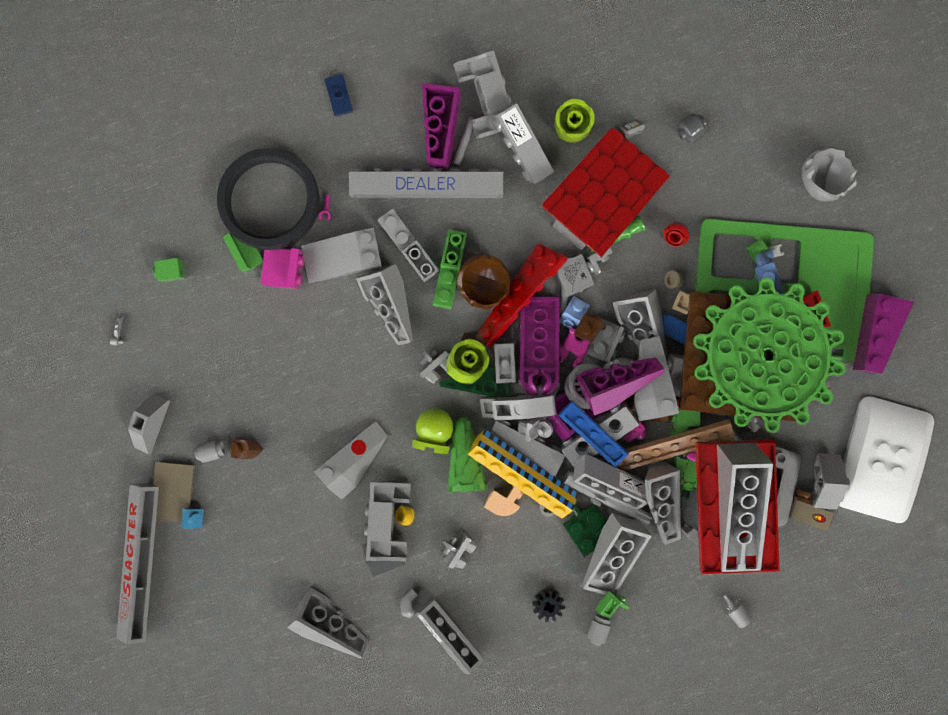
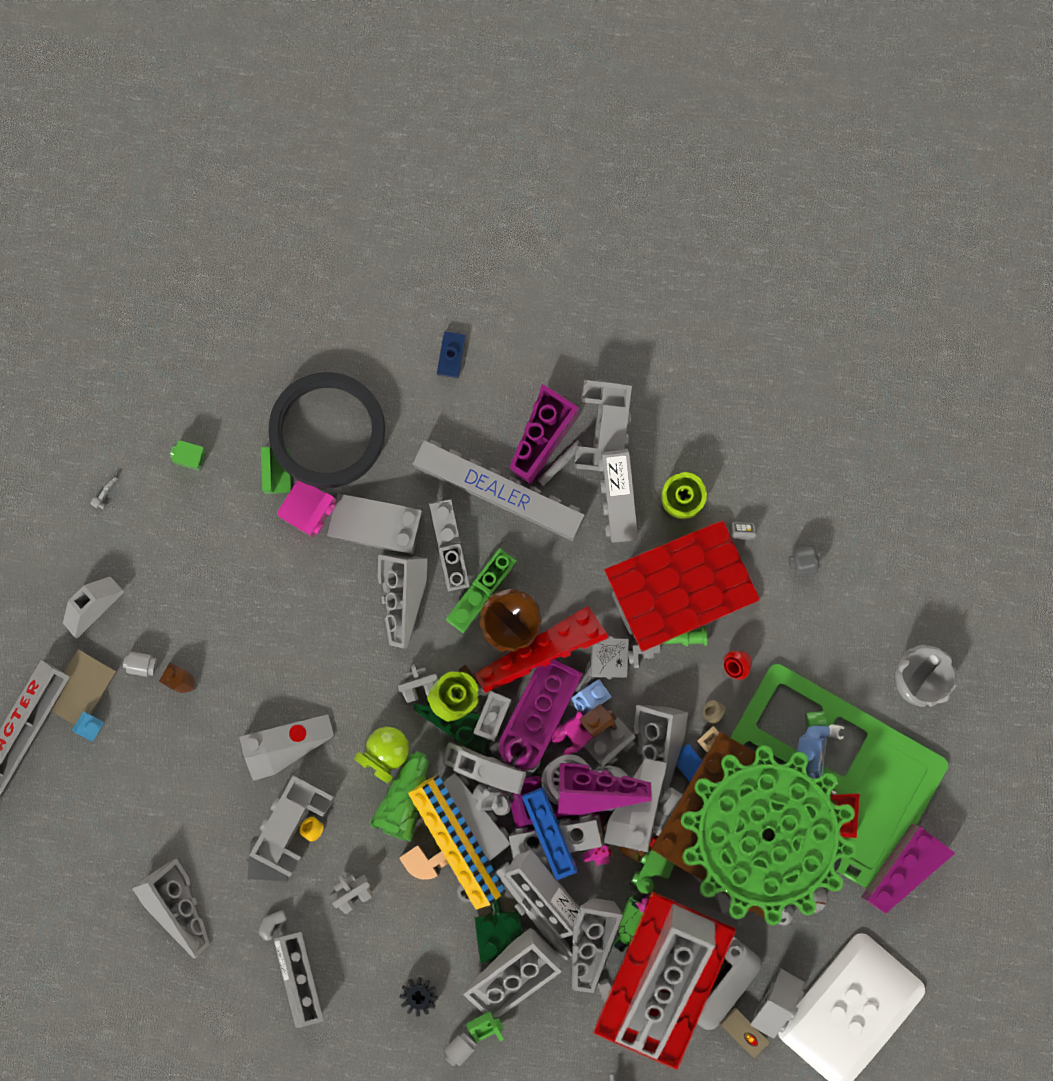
camera: 25 degrees right, 5 degrees down
(326, 208) = (382, 466): dark pink hand -> none
(674, 445) = (628, 886): medium nougat plate -> none
(803, 496) = (744, 1008): reddish brown bush -> none

